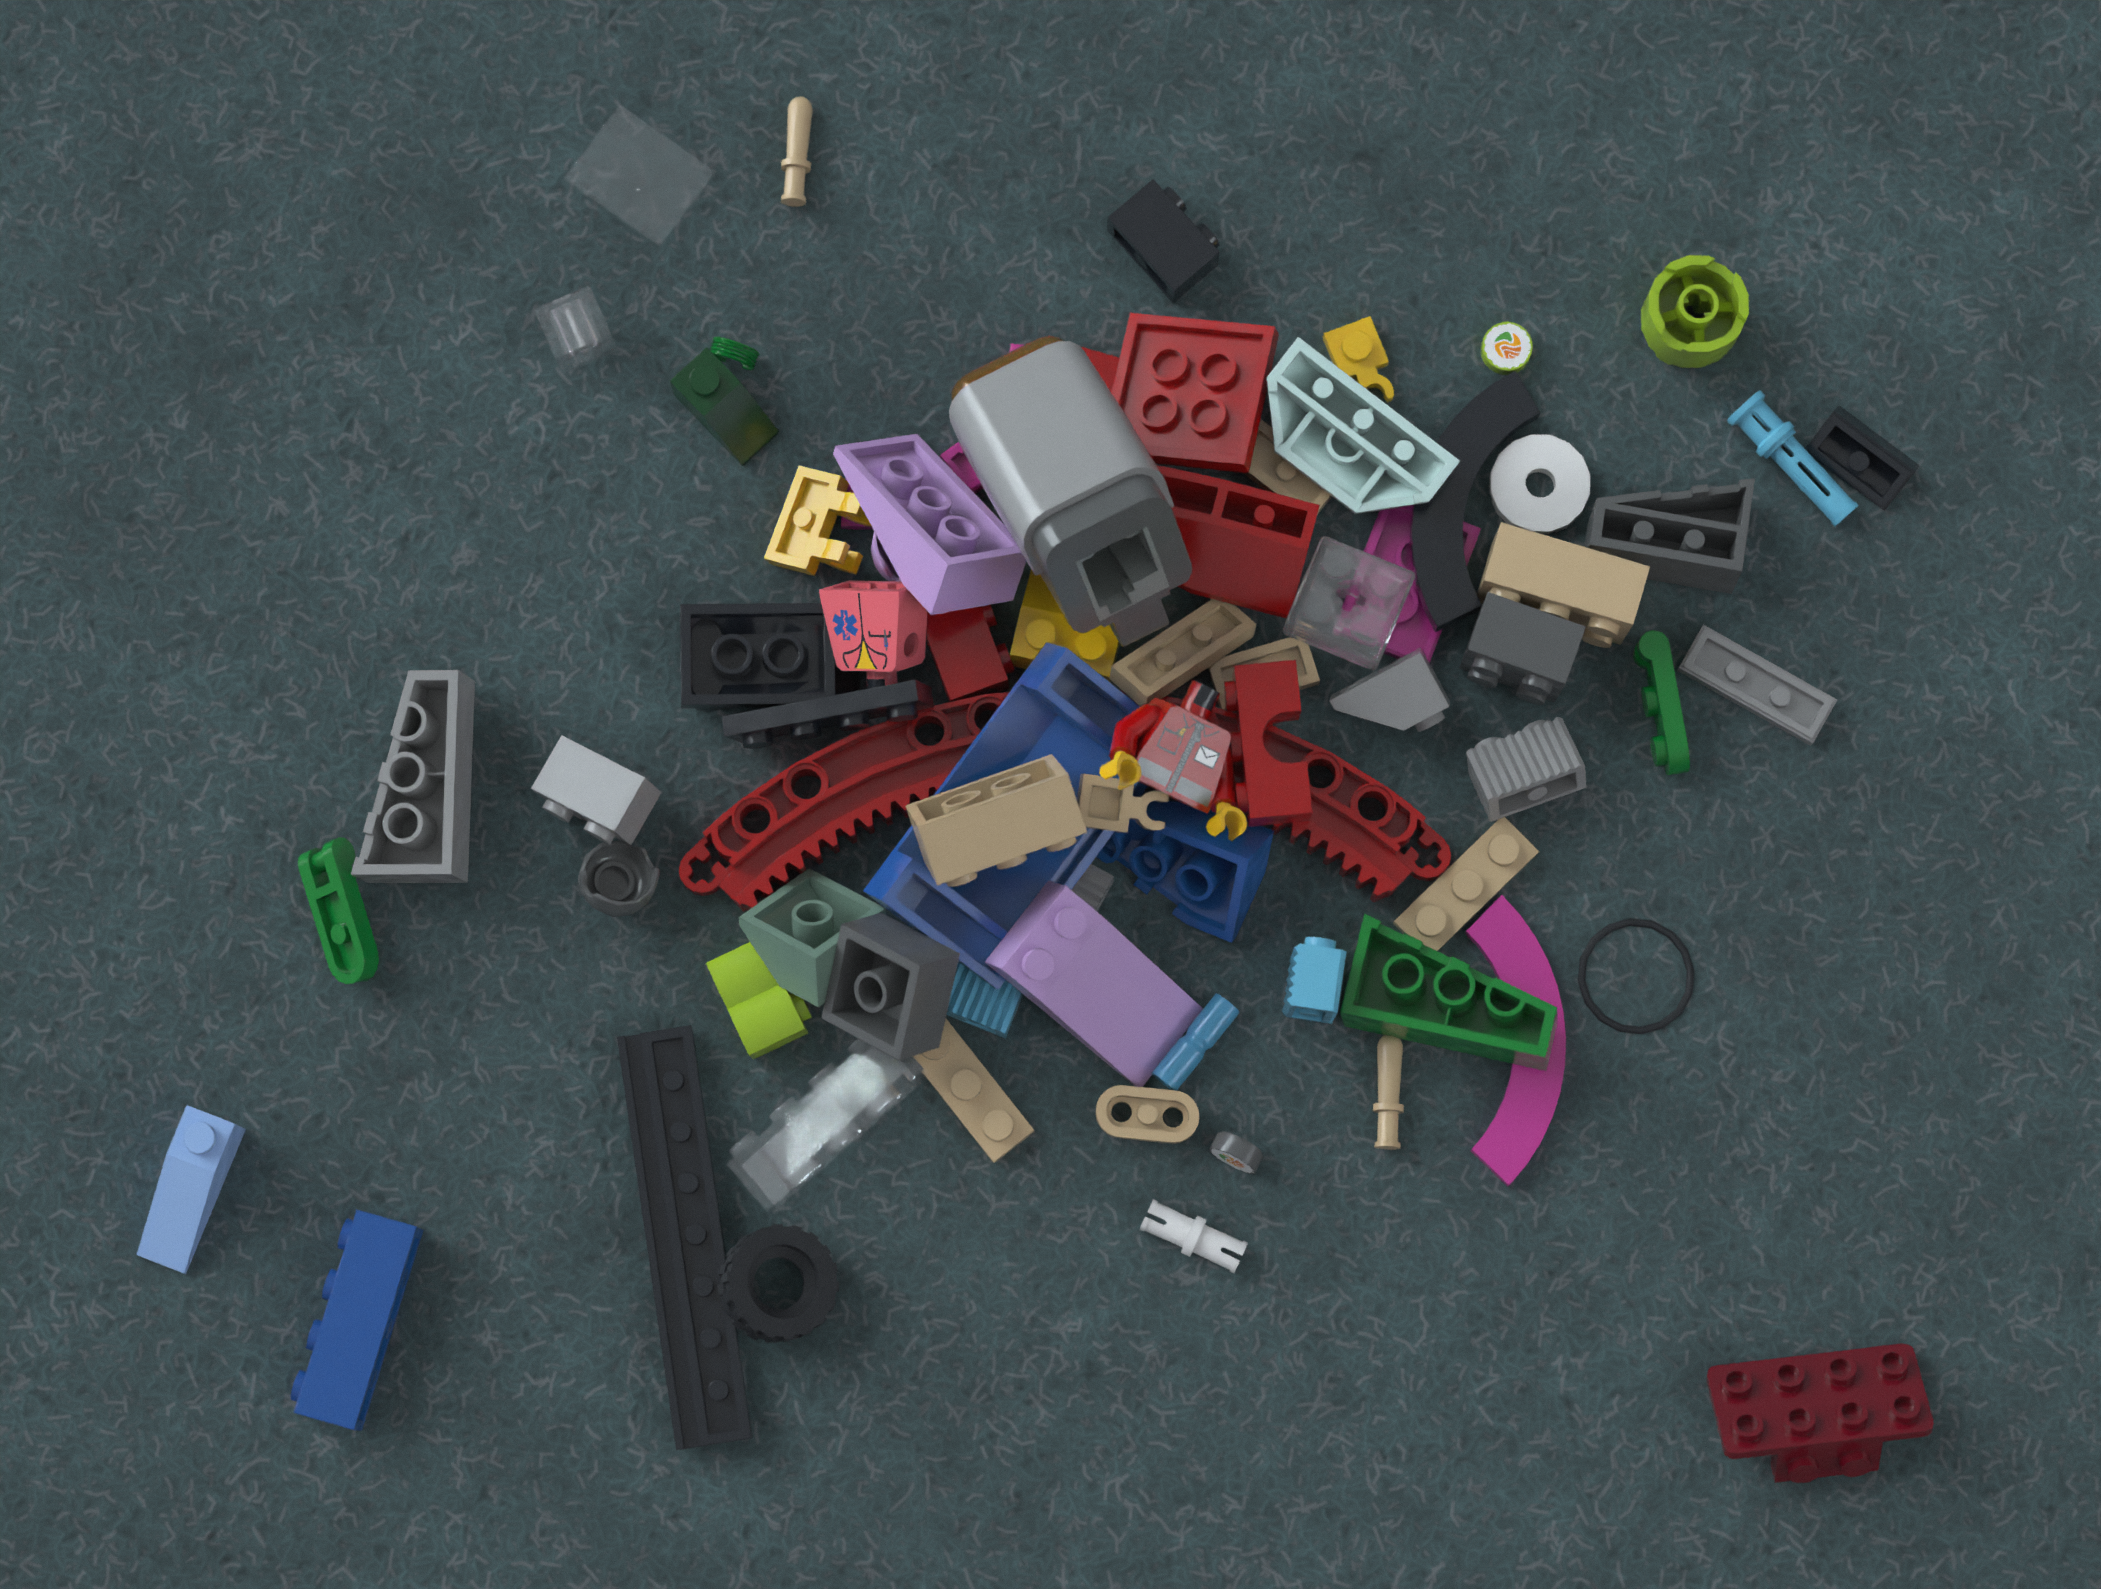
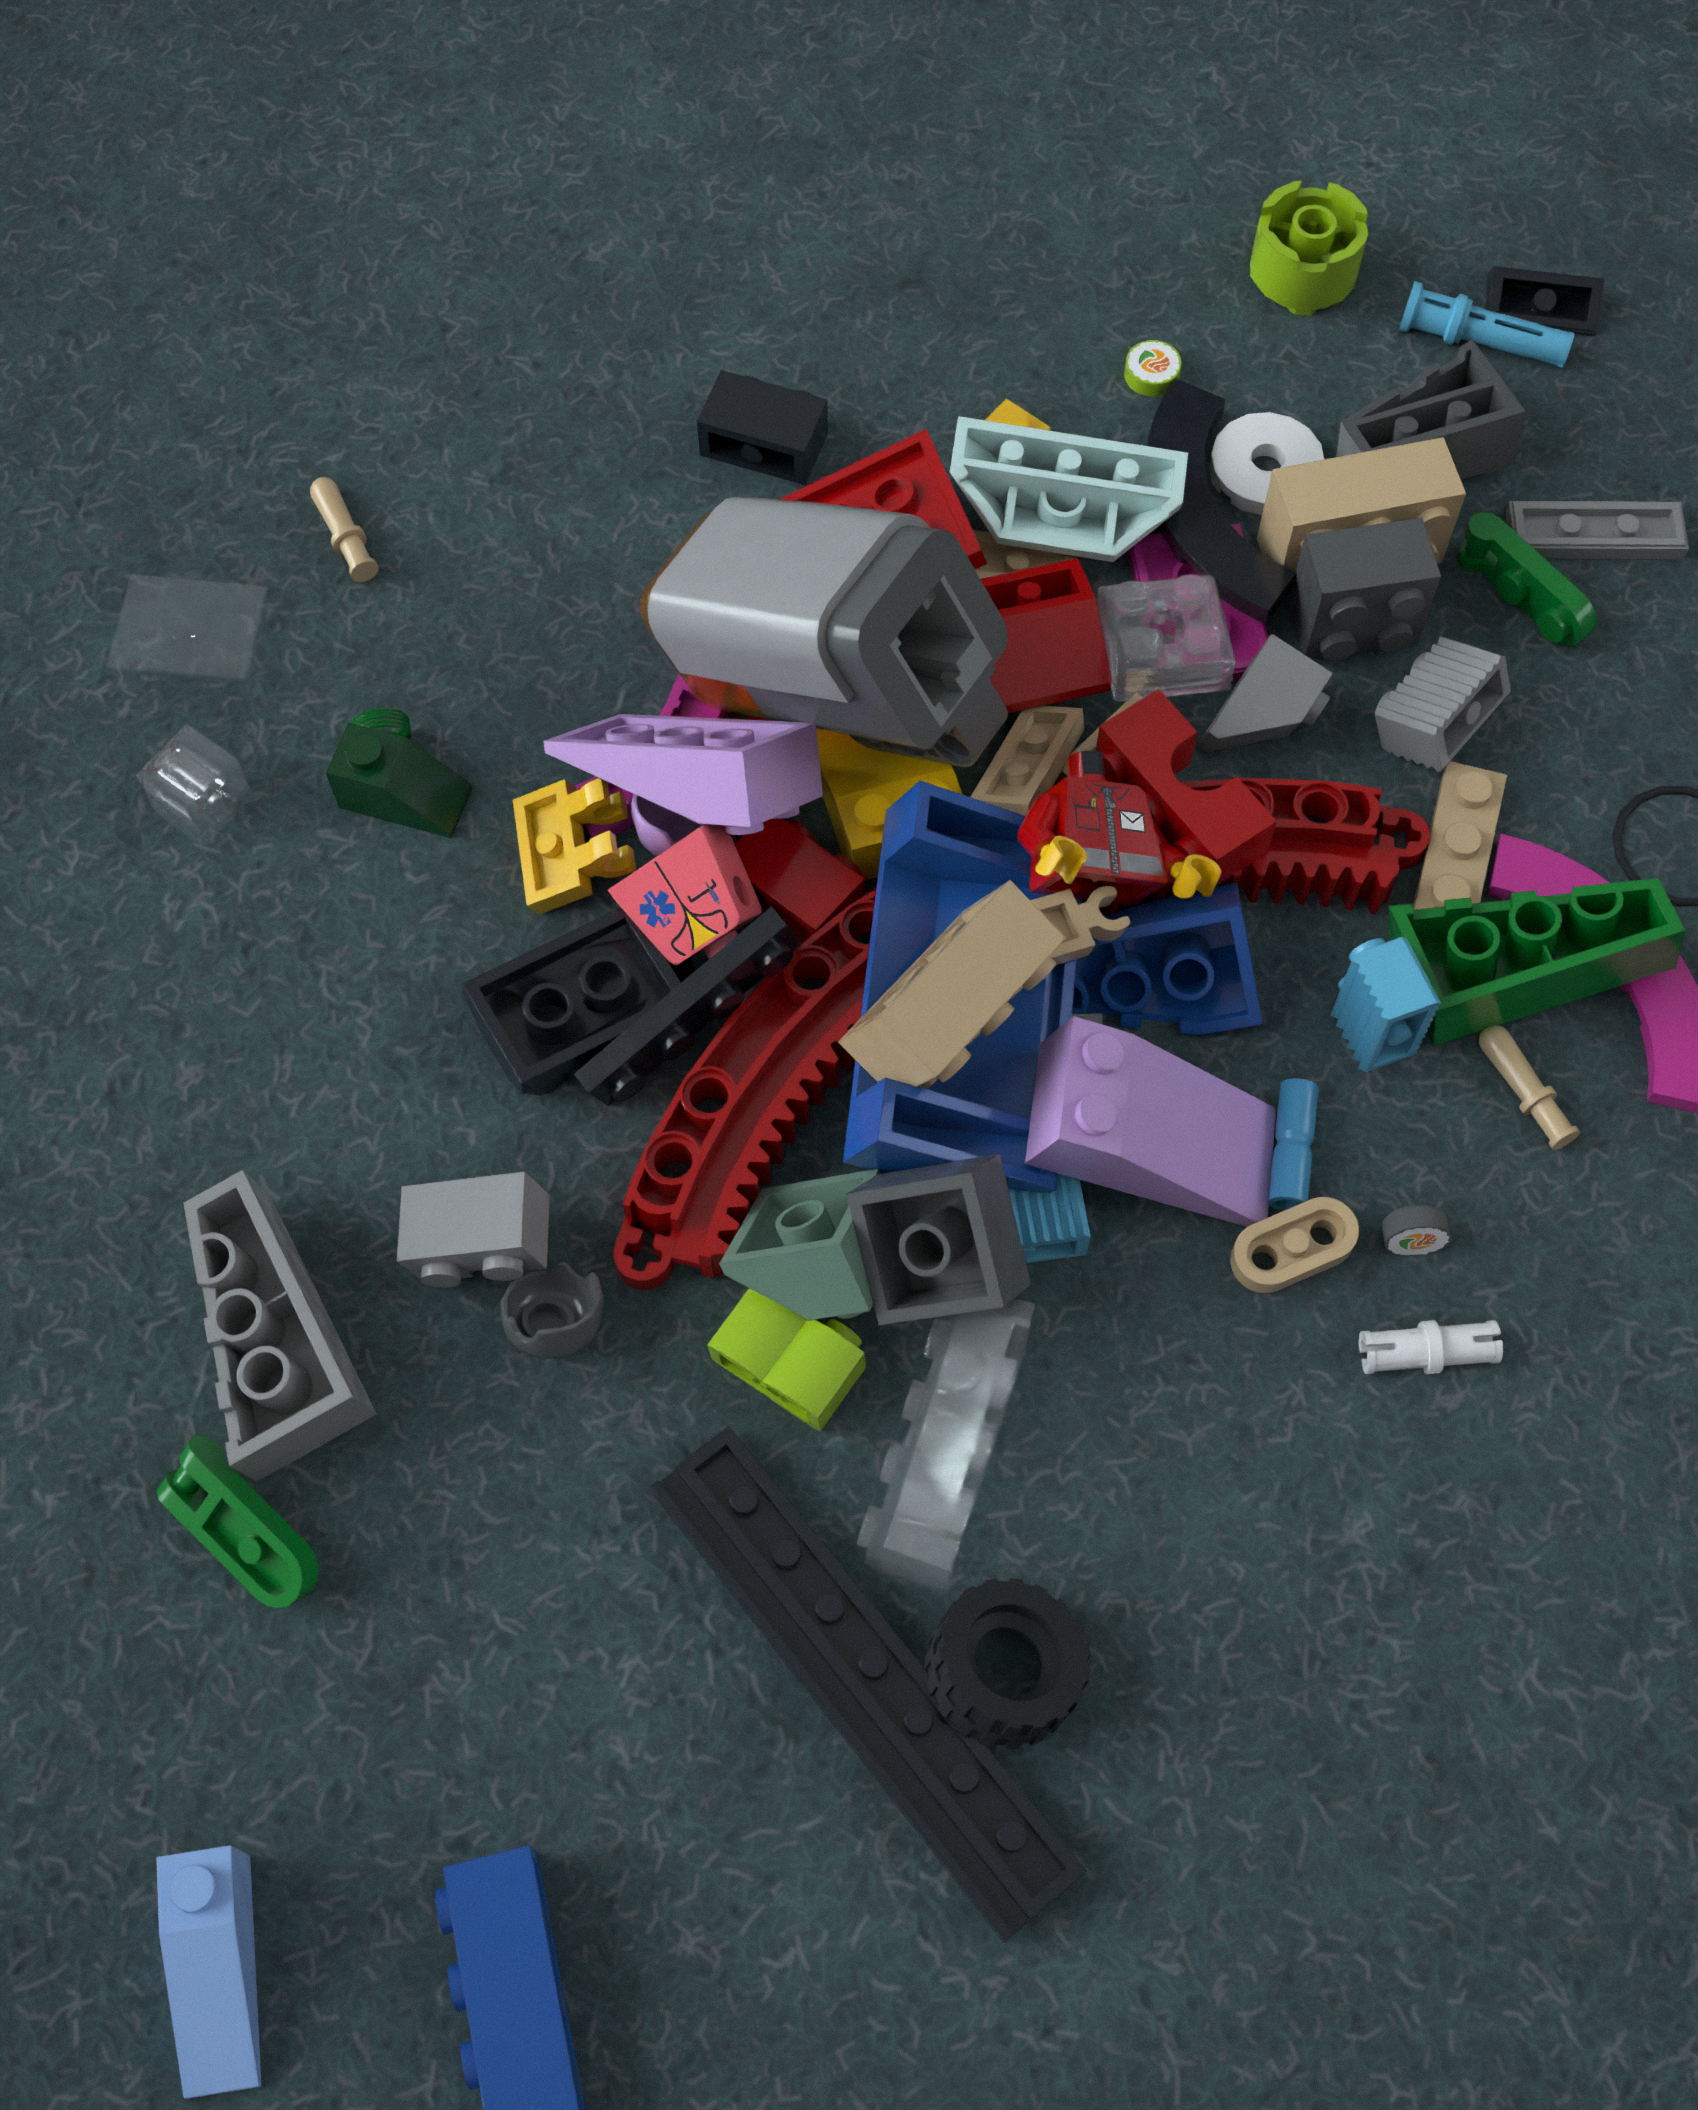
camera: 30 degrees left, 15 degrees down
(974, 1095) = (1100, 1334): tan plate -> none

